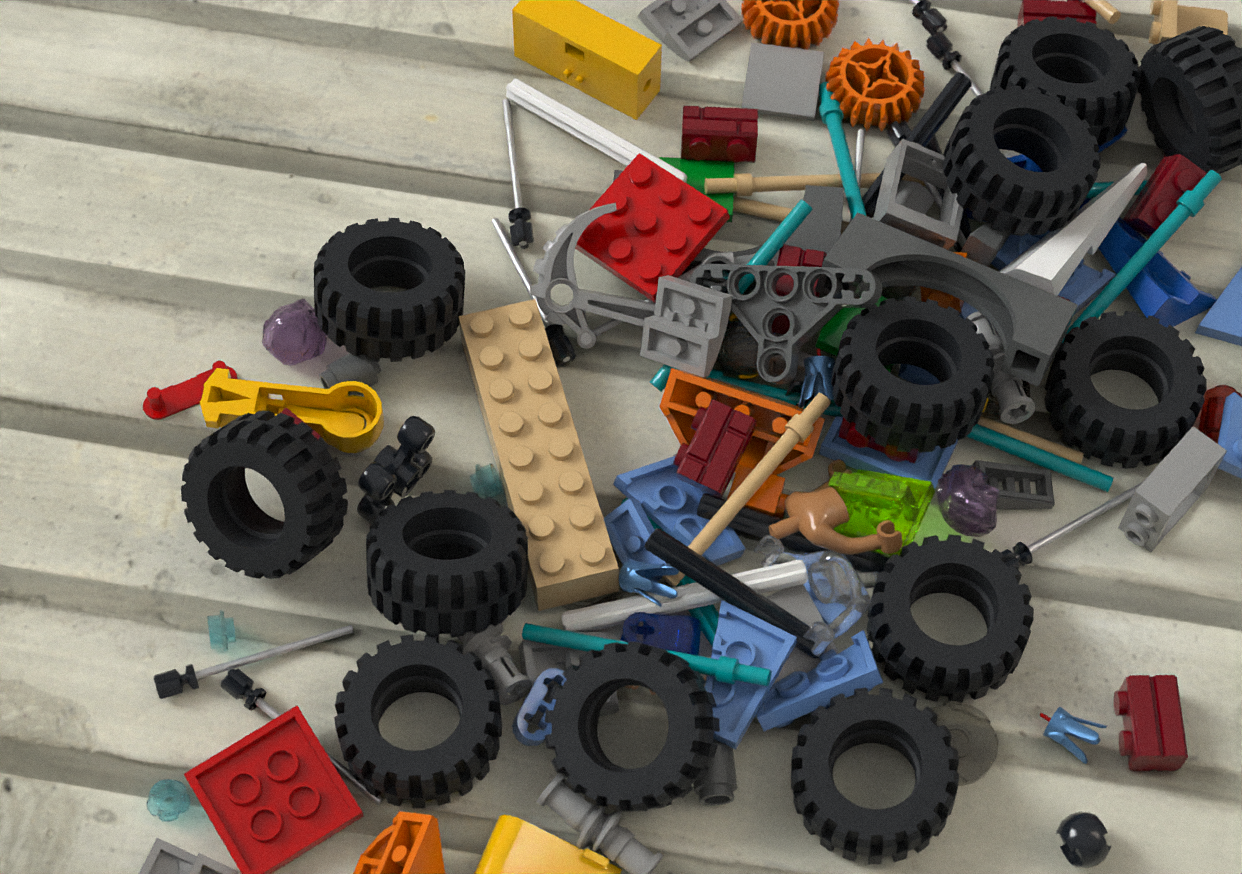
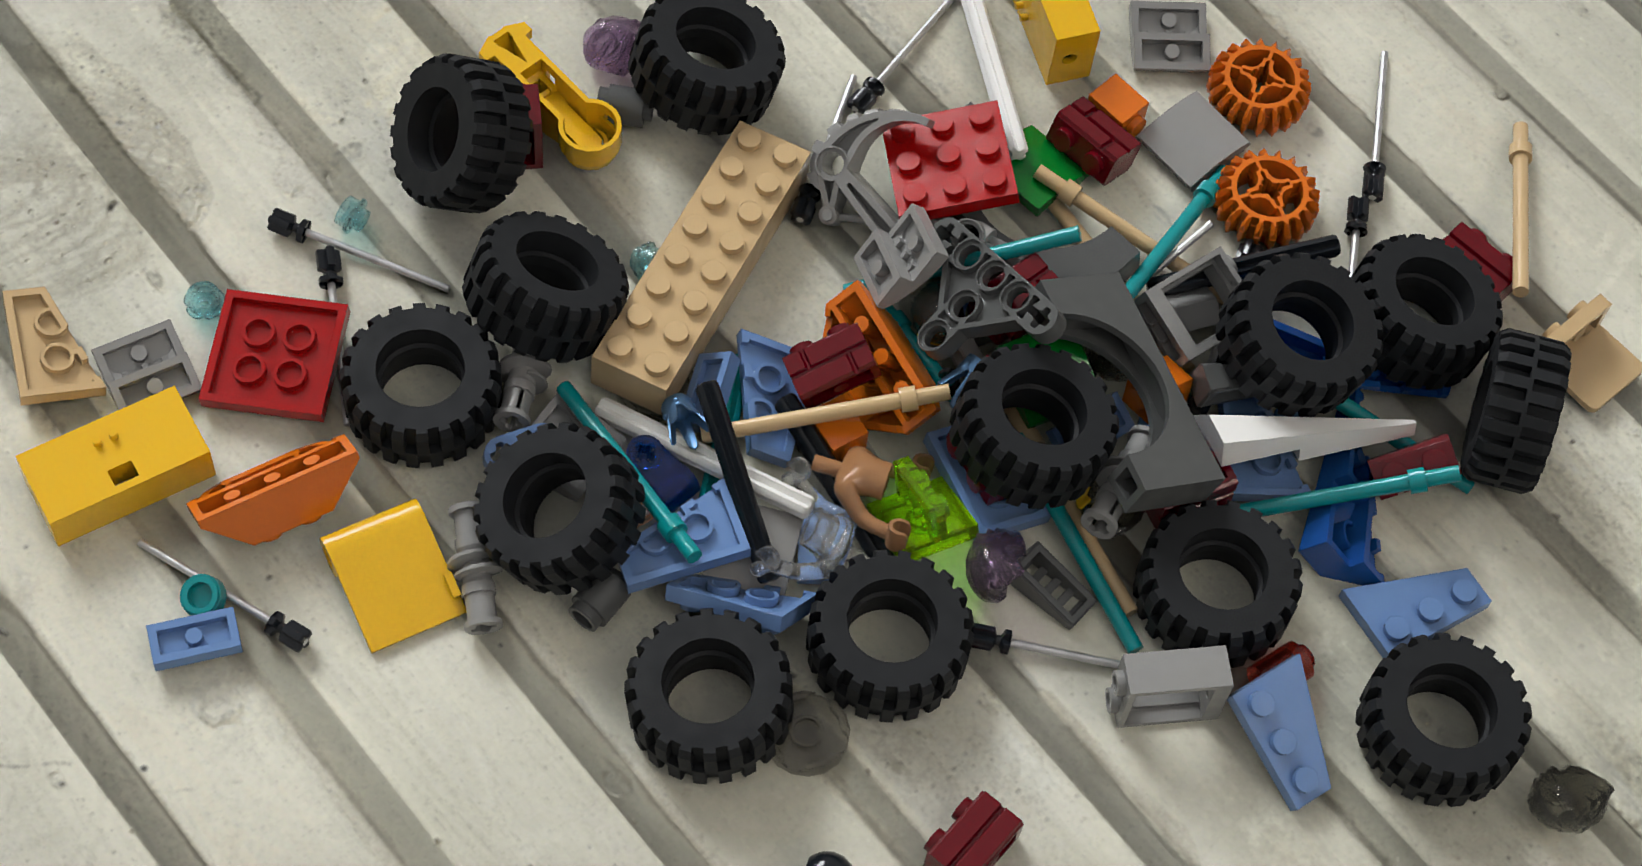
camera: 35 degrees right, 0 degrees up
(181, 396) = (481, 25): red piece -> none
(396, 469) = (583, 195): black gear -> none
(712, 90) = (1121, 104): none -> orange brick
(1065, 723) = (901, 787): flat silver piece -> none

